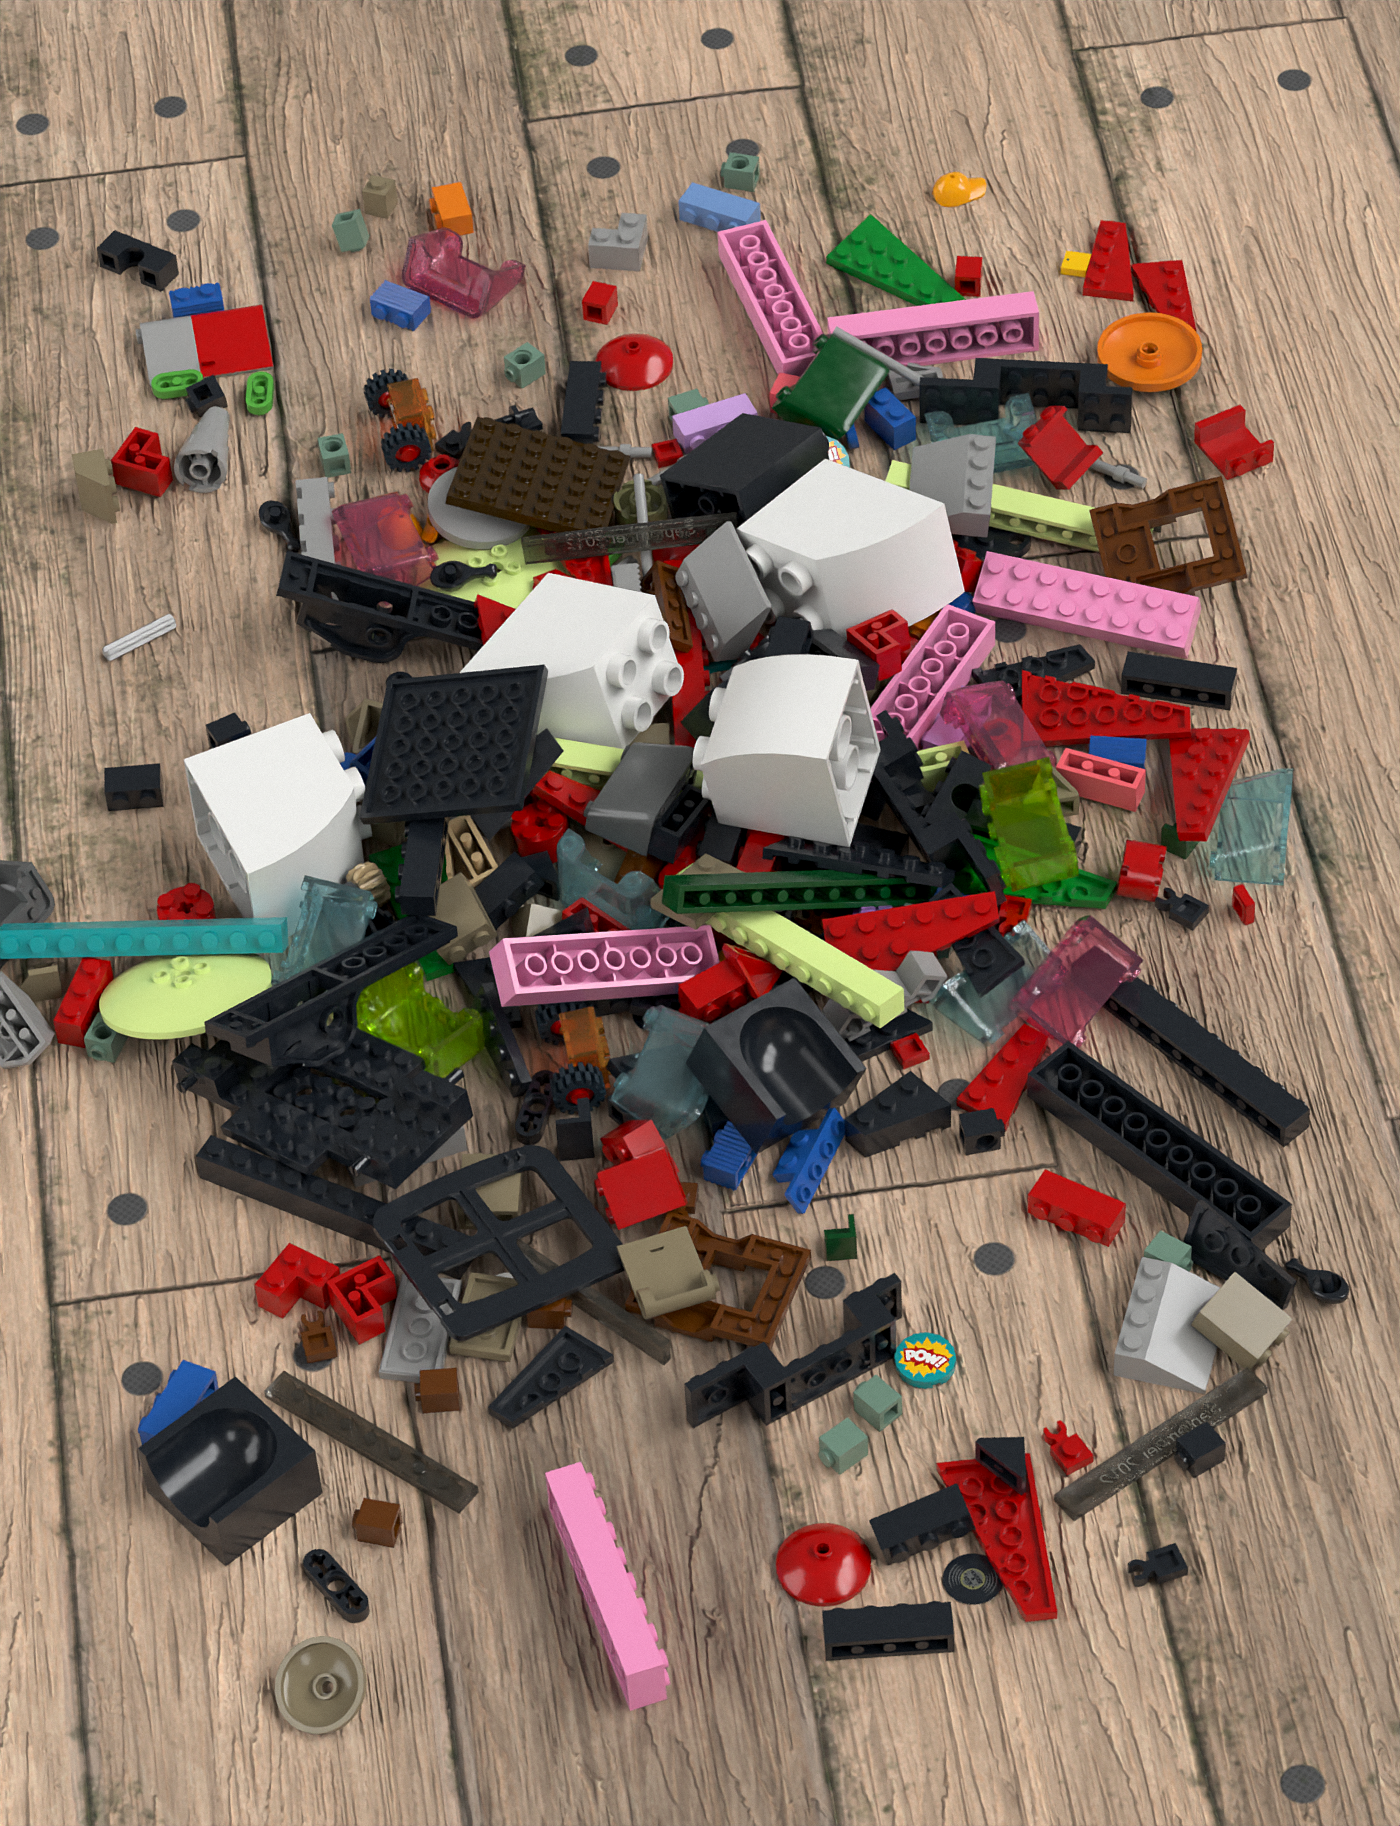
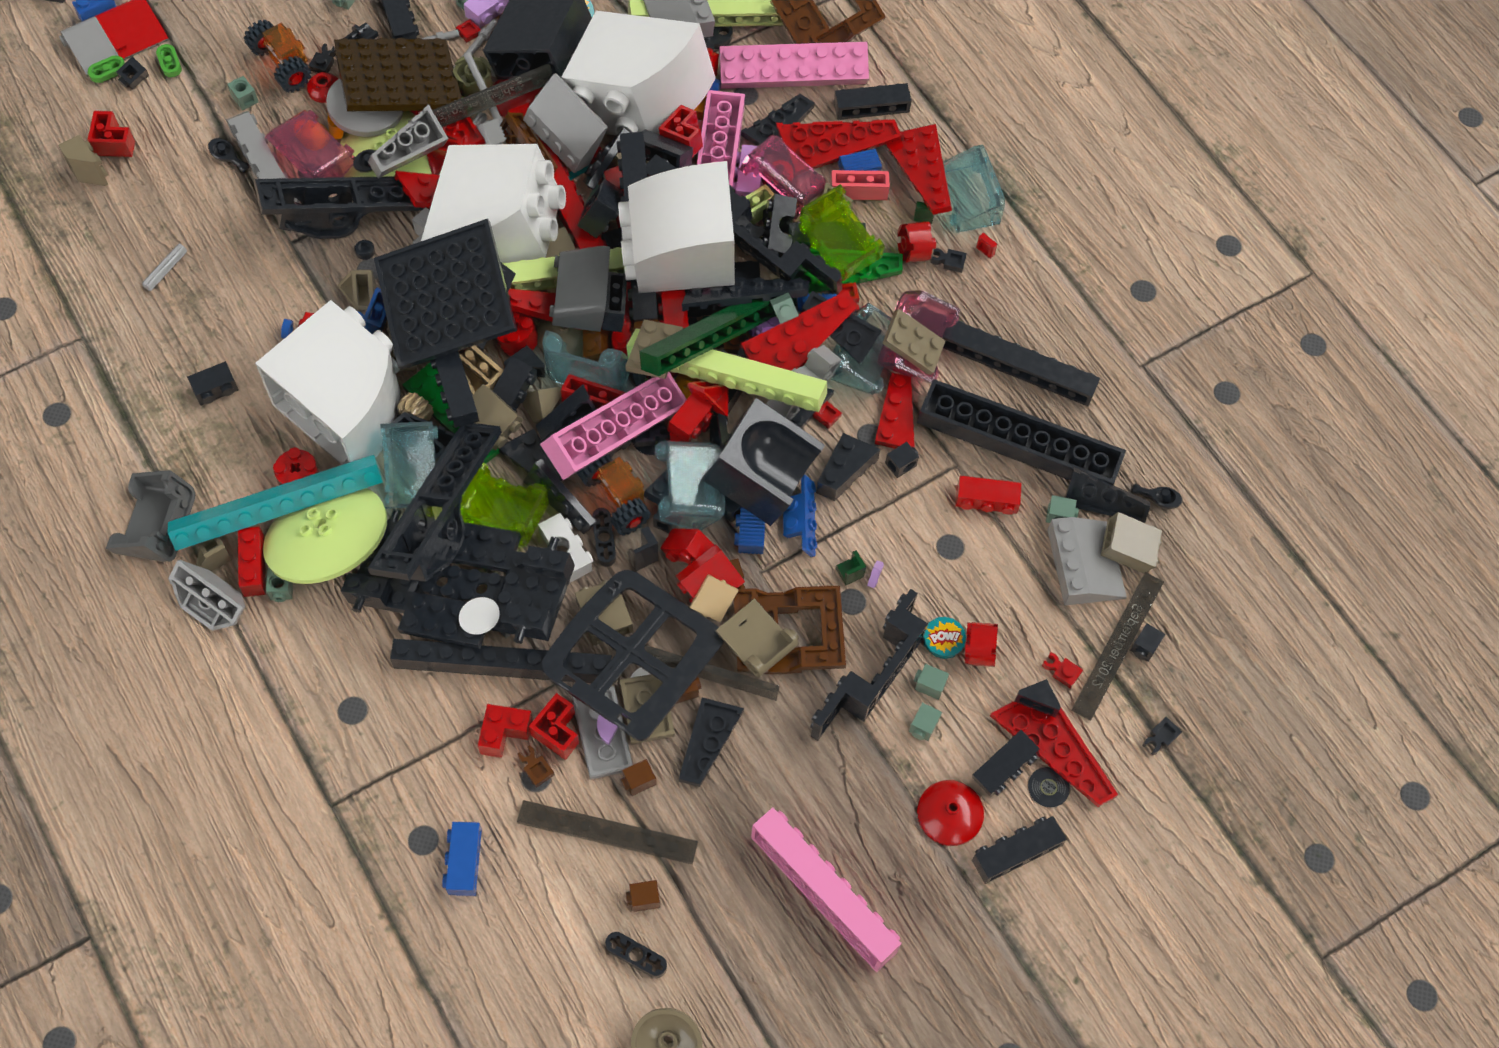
camera: 30 degrees left, 15 degrees up
(205, 453) = (151, 116): light grey cone -> none
(226, 730) = (263, 324): black brick -> none
(230, 1470) = (527, 899): black piece -> none
(324, 1134) = (479, 615): none -> white sticker
(425, 1322) = (606, 729): none -> lavender tile
(487, 1123) = (562, 529): none -> white arch
(505, 564) = (411, 142): none -> light grey wedge
(635, 1211) = (714, 598): none -> tan piece
(869, 1254) = (877, 569): none -> lavender tile
(899, 891) = (784, 308): none -> sand green brick
(965, 1376) = (981, 644): none -> red brick
(1060, 984) = (913, 342): none -> dark tan plate

